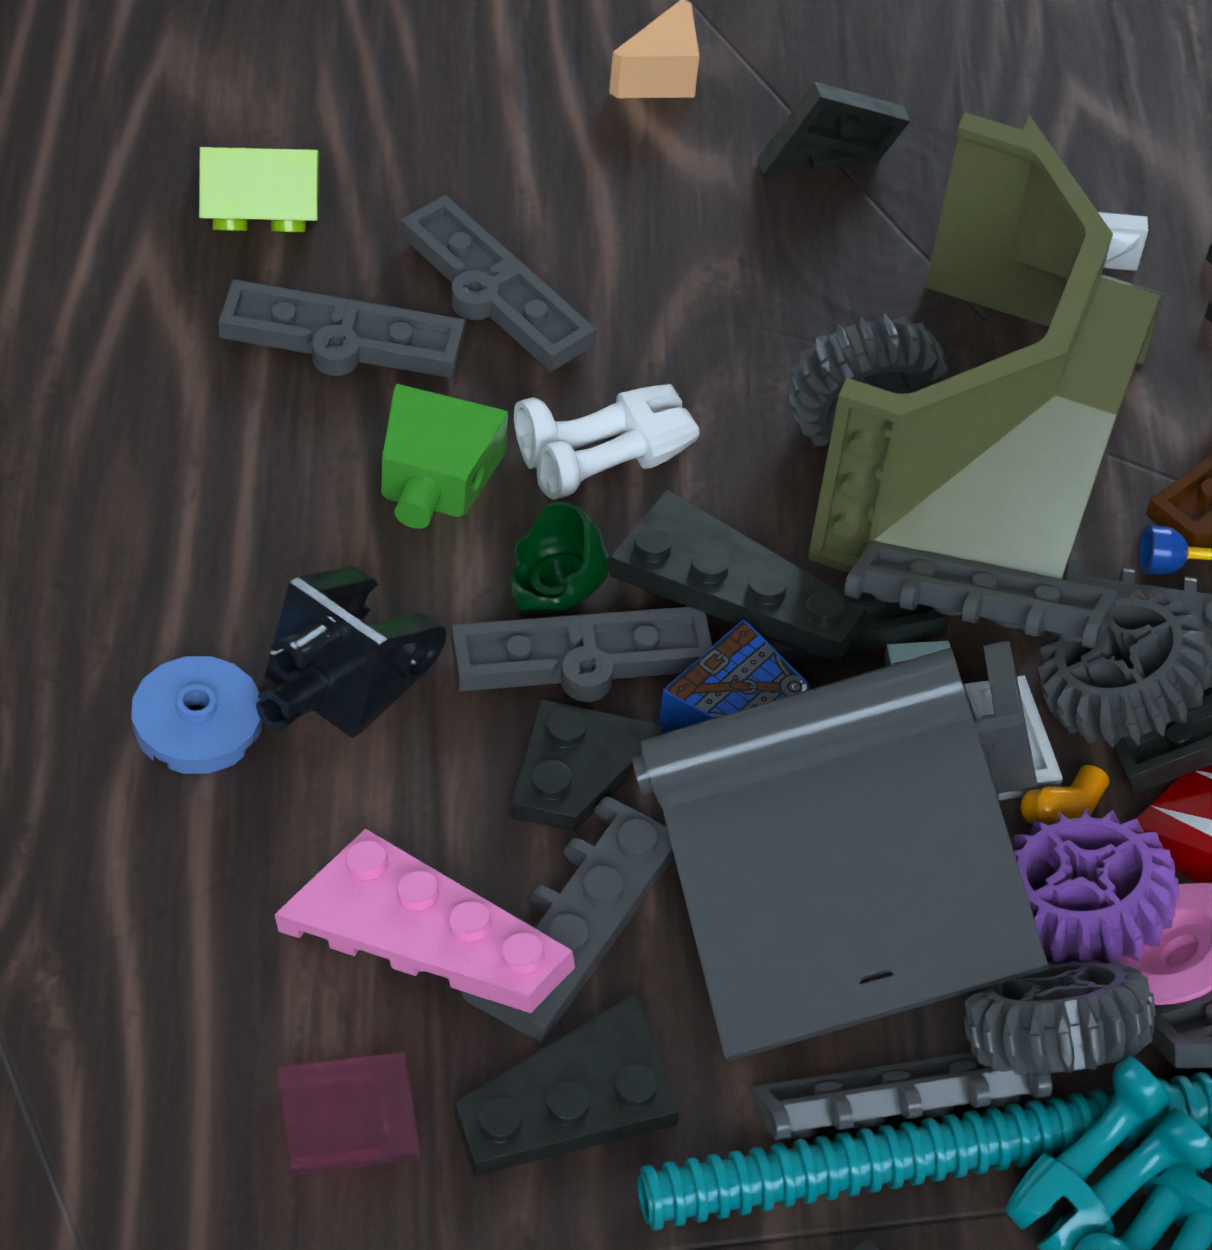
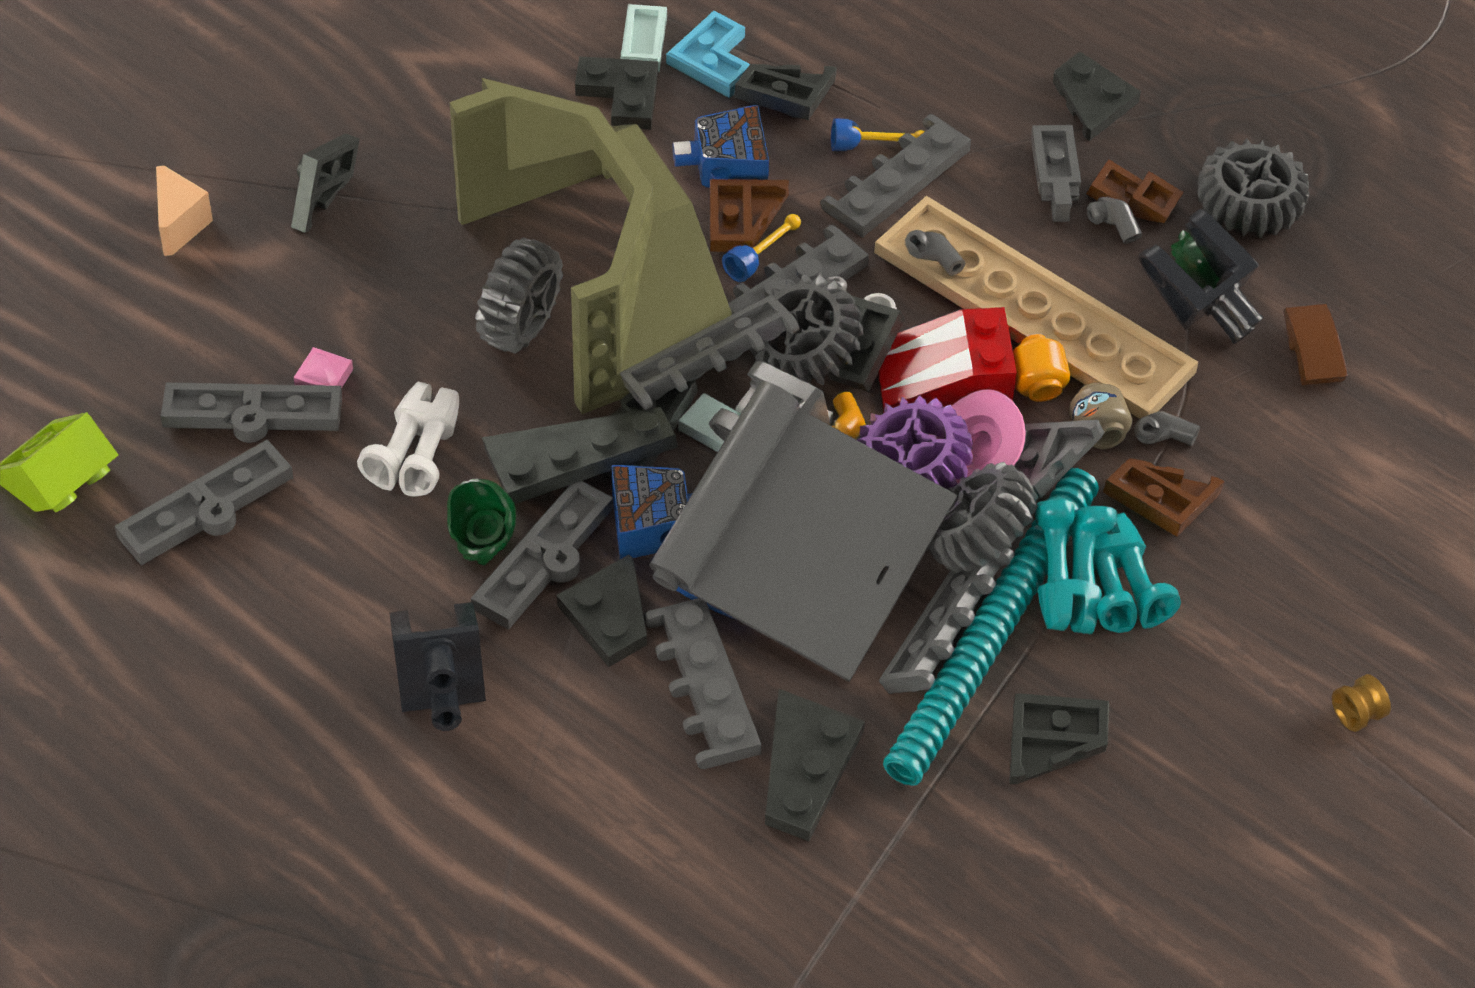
camera: 45 degrees left, 0 degrees up
(202, 738) = (401, 779): medium blue plate -> none
(348, 1113) = (723, 869): clear pink piece -> none
(424, 921) = (627, 753): bright pink wing -> none
(439, 453) = (343, 522): bright green torso -> none
(607, 307) = (323, 369): none -> bright pink tile

